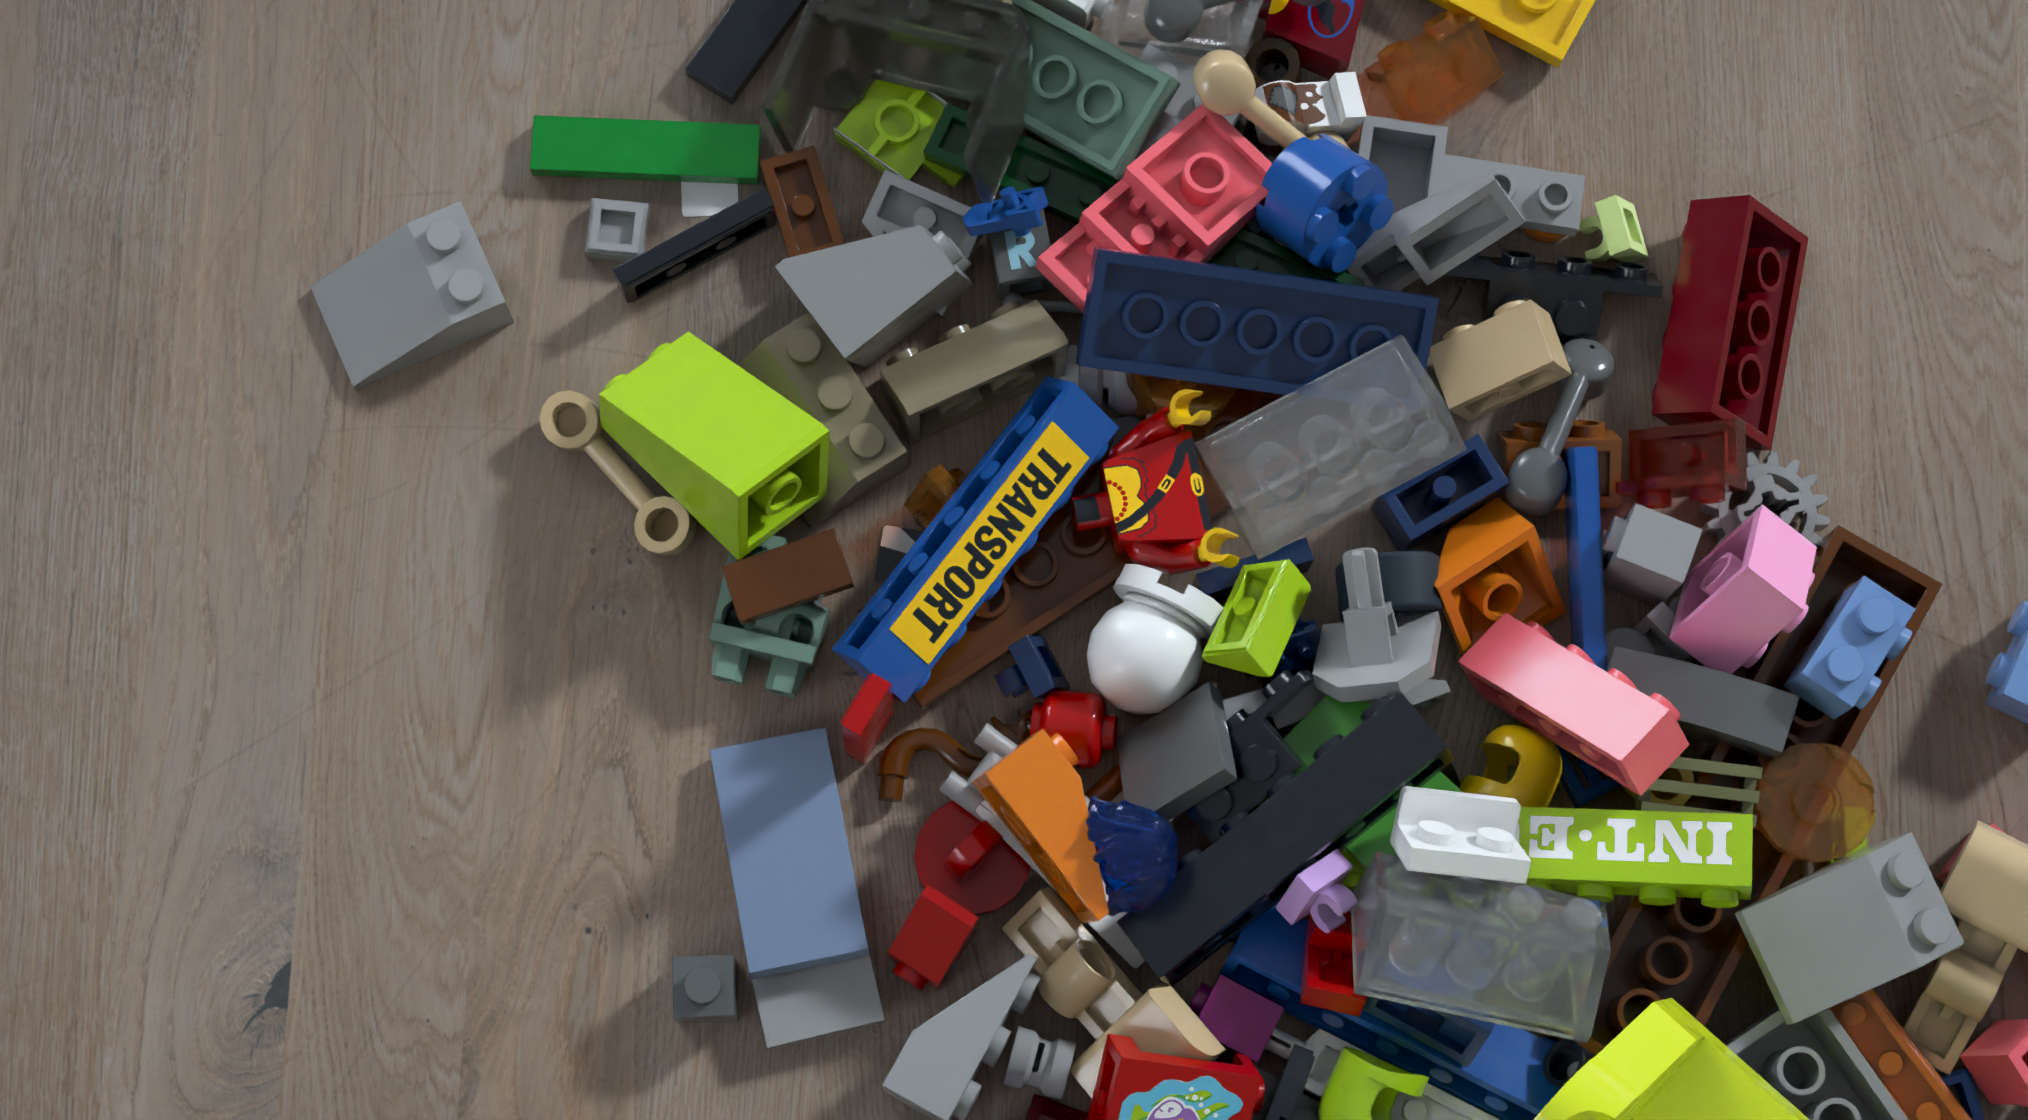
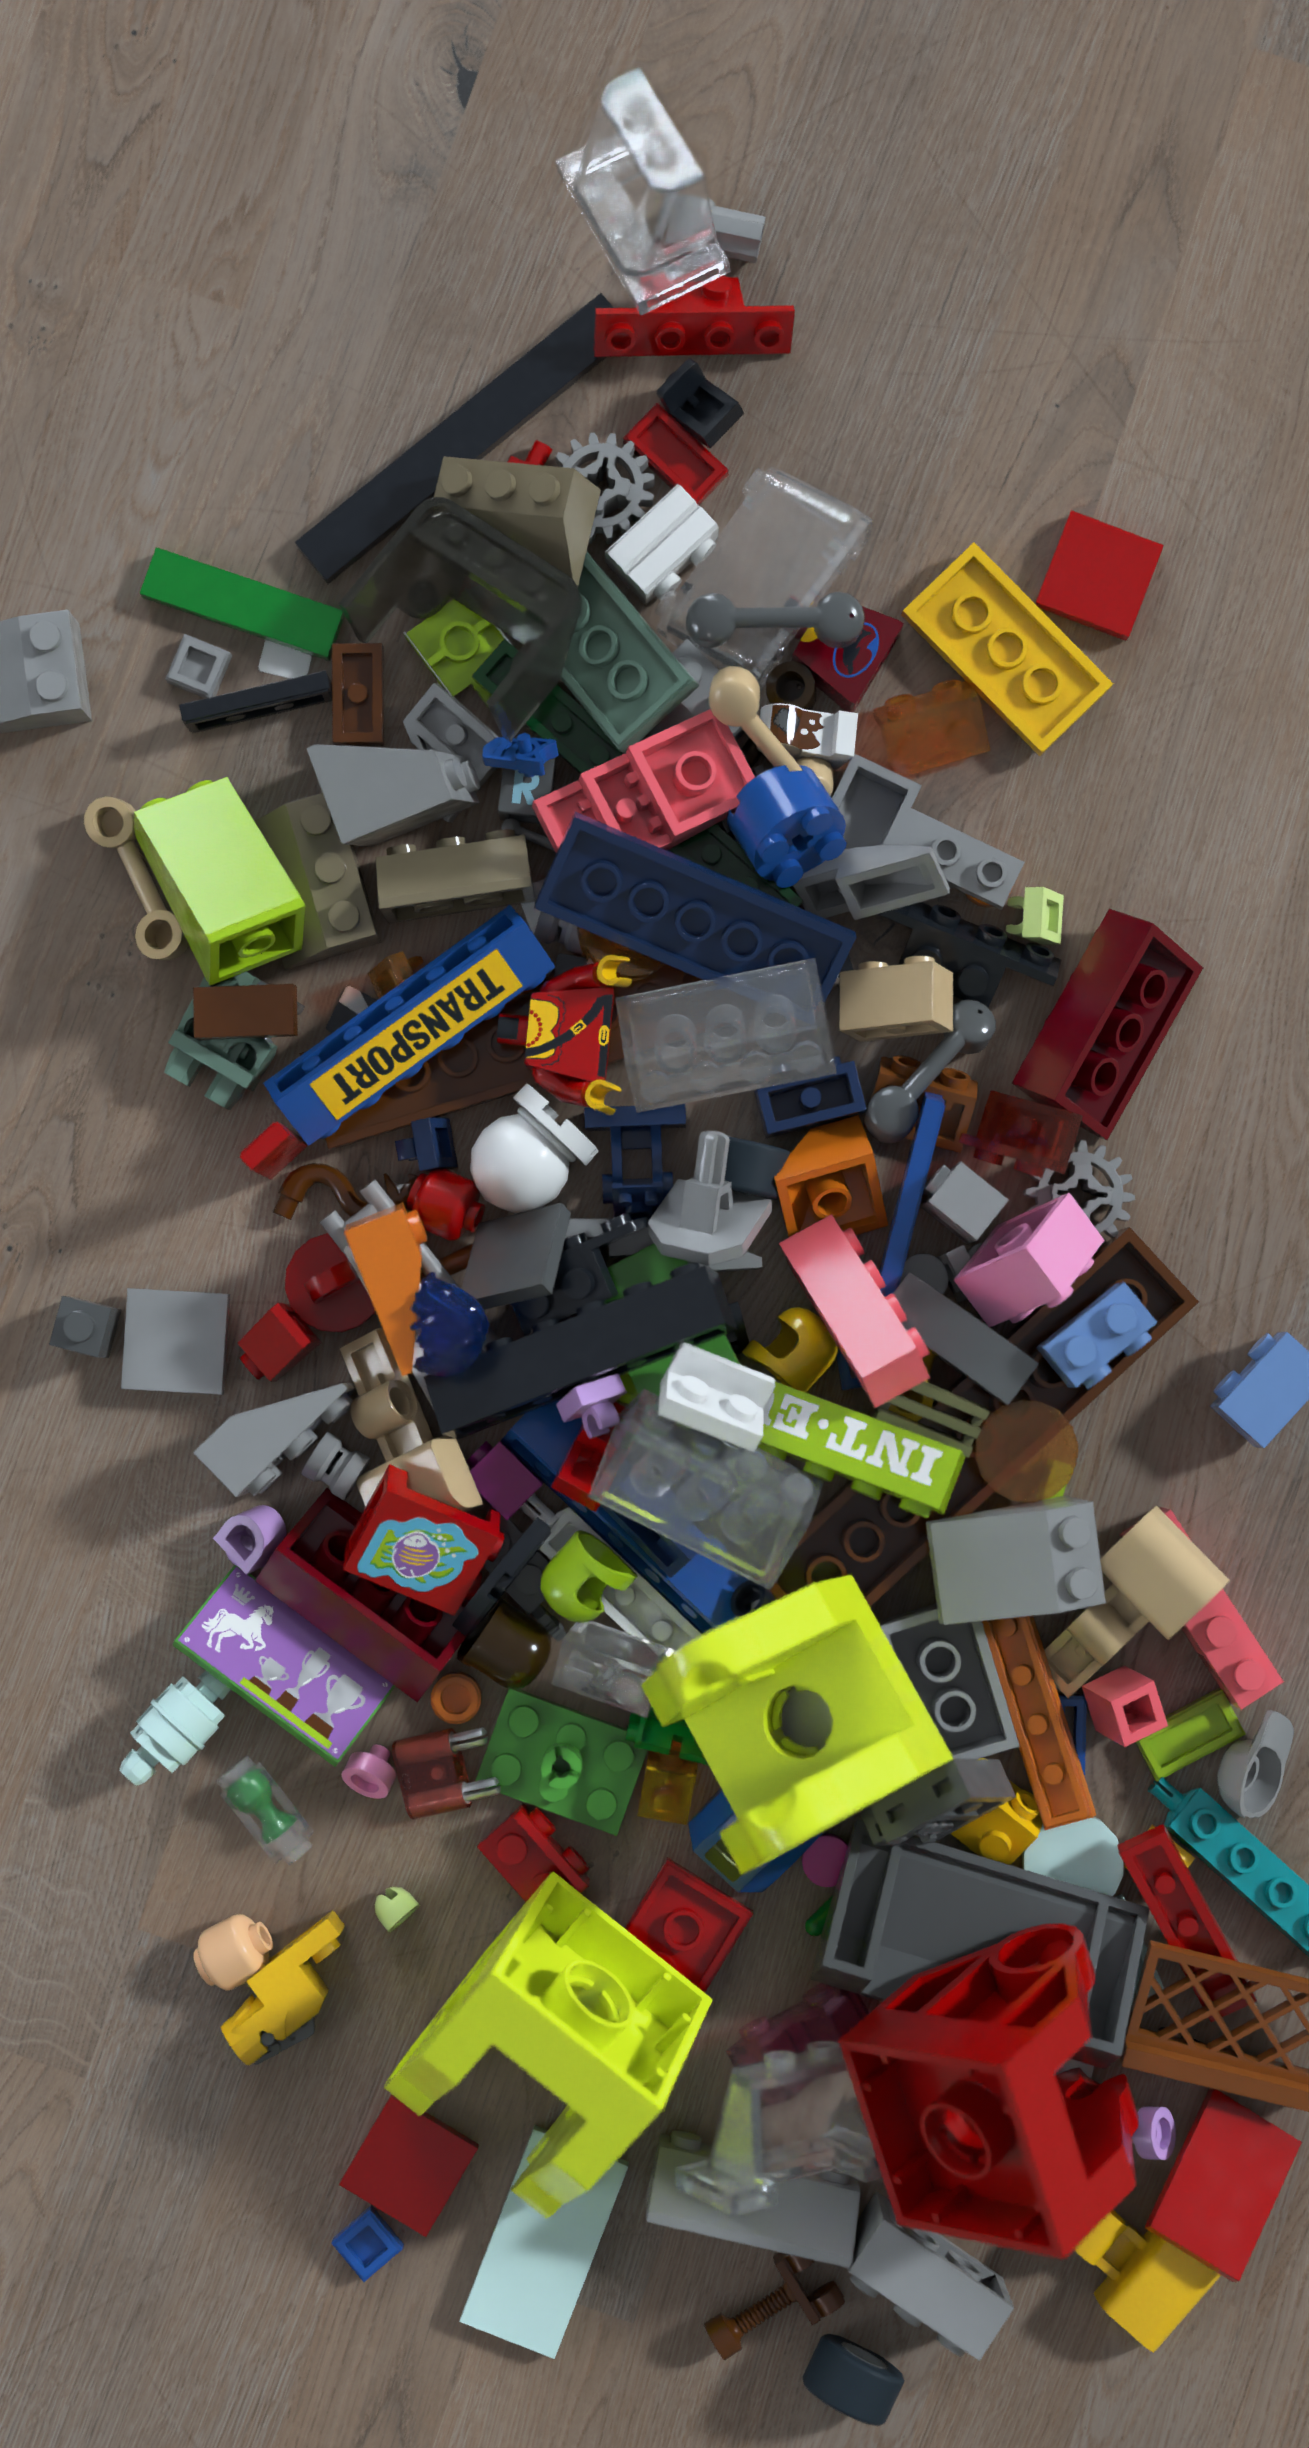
camera: 25 degrees right, 10 degrees up
(788, 853) = (184, 1236): sand blue tile -> none
(1258, 618) = (618, 1163): lime slope -> none

